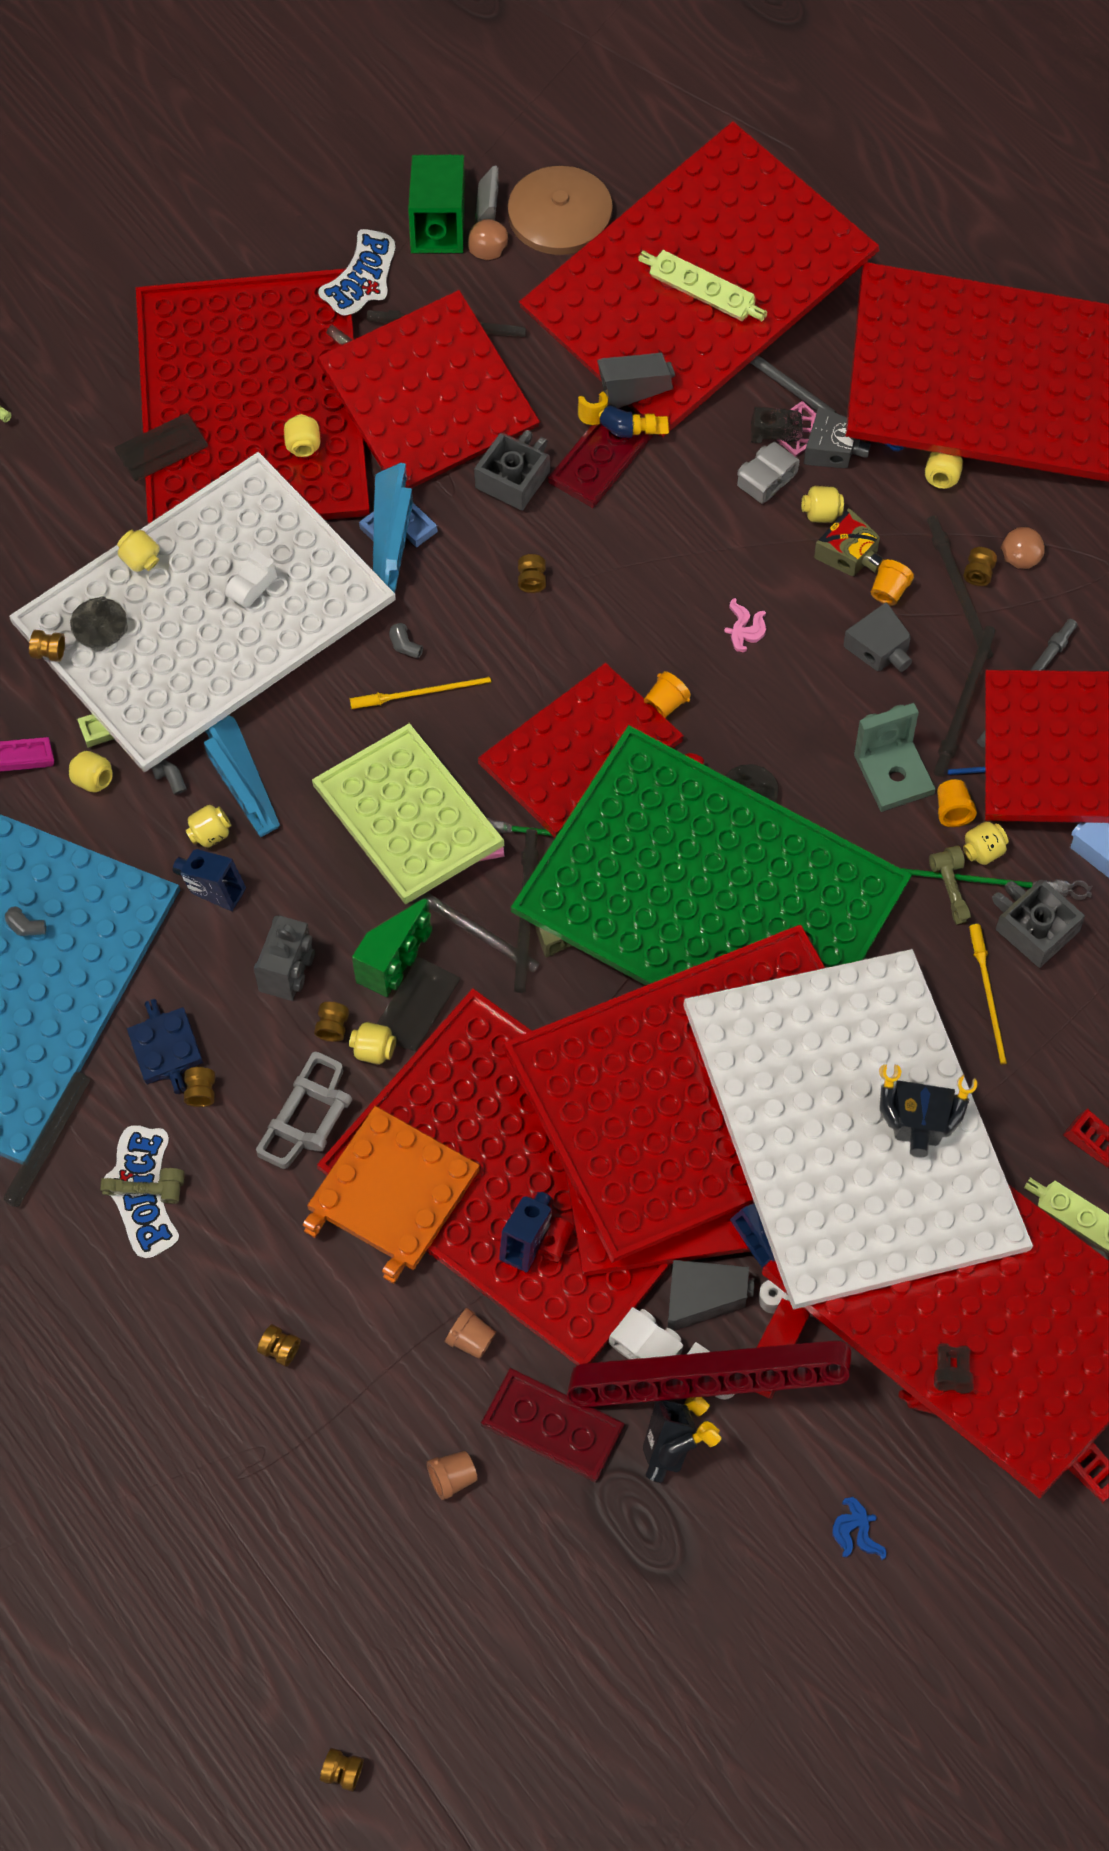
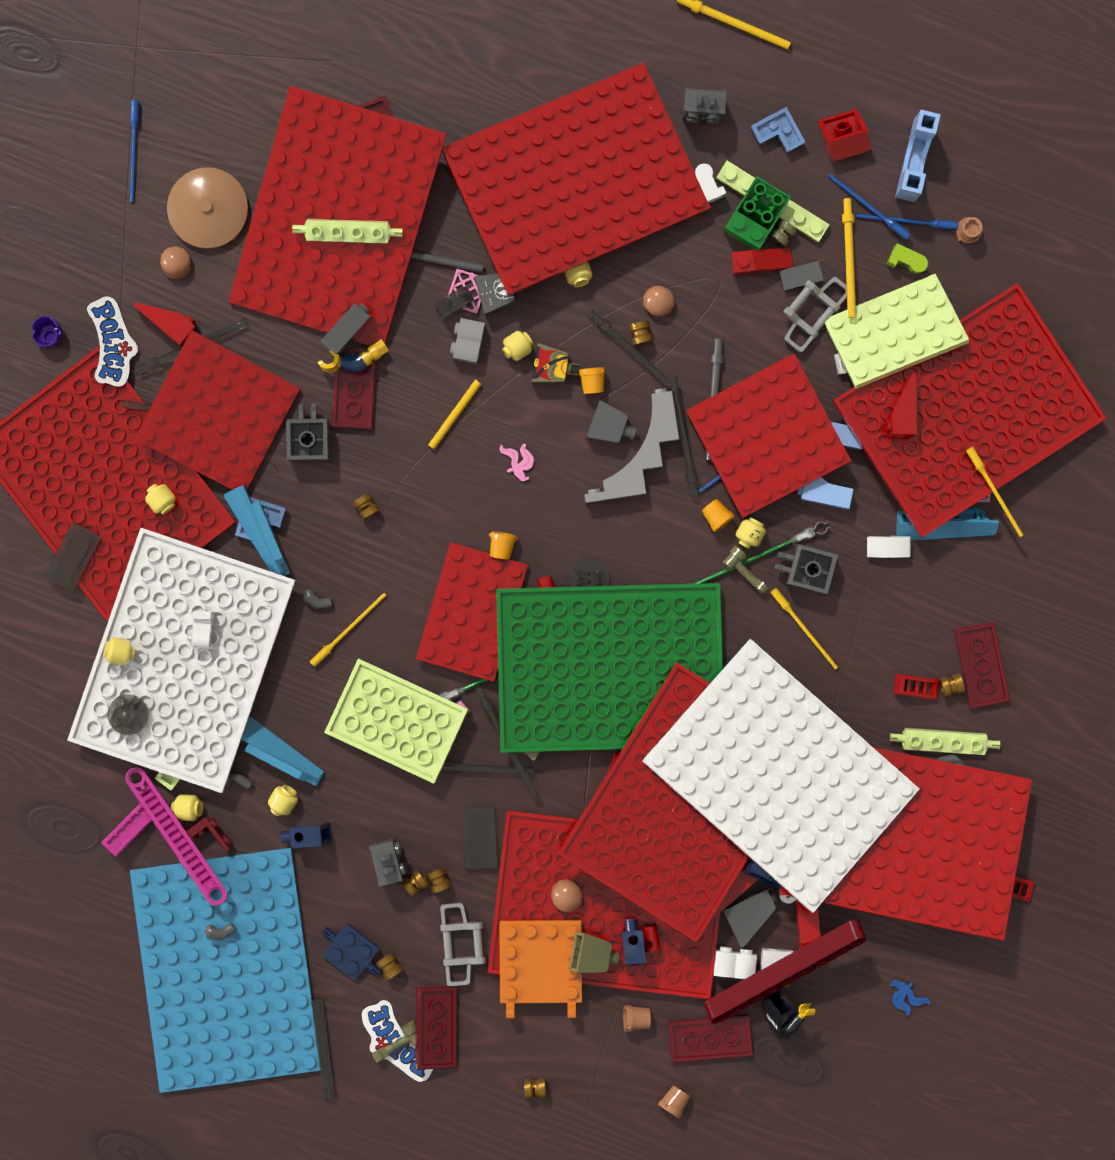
camera: 35 degrees left, 25 degrees up
(47, 645) = (108, 751): pearl gold wheel -> none
(53, 790) = (176, 837): none -> dark pink gear
(92, 800) = (200, 828): none -> dark red bracket
(205, 1194) = (436, 1027): none -> dark red tile
(300, 228) = (46, 332): none -> dark purple hair
(308, 1008) = (415, 883): none -> pearl gold wheel
(372, 1043) = (471, 880): light yellow head -> none
(390, 948) = (444, 826): green slope -> none
(434, 277) = (170, 322): none -> red slope
(437, 204) = (124, 255): green slope -> none
(466, 1208) = (591, 954): none -> olive torso
(481, 1126) = (566, 895): none -> nougat hair
(487, 195) = (153, 228): light grey slope -> none
(538, 97) = (134, 123): none -> blue piece
(701, 539) = (454, 414): none -> yellow bar
(887, 747) = (656, 505): sand green bracket -> none
(921, 1111) = (818, 752): black torso -> none
(938, 678) = (630, 479): none -> light grey arch
(953, 1378) = (923, 903): clear smoke piece -> none

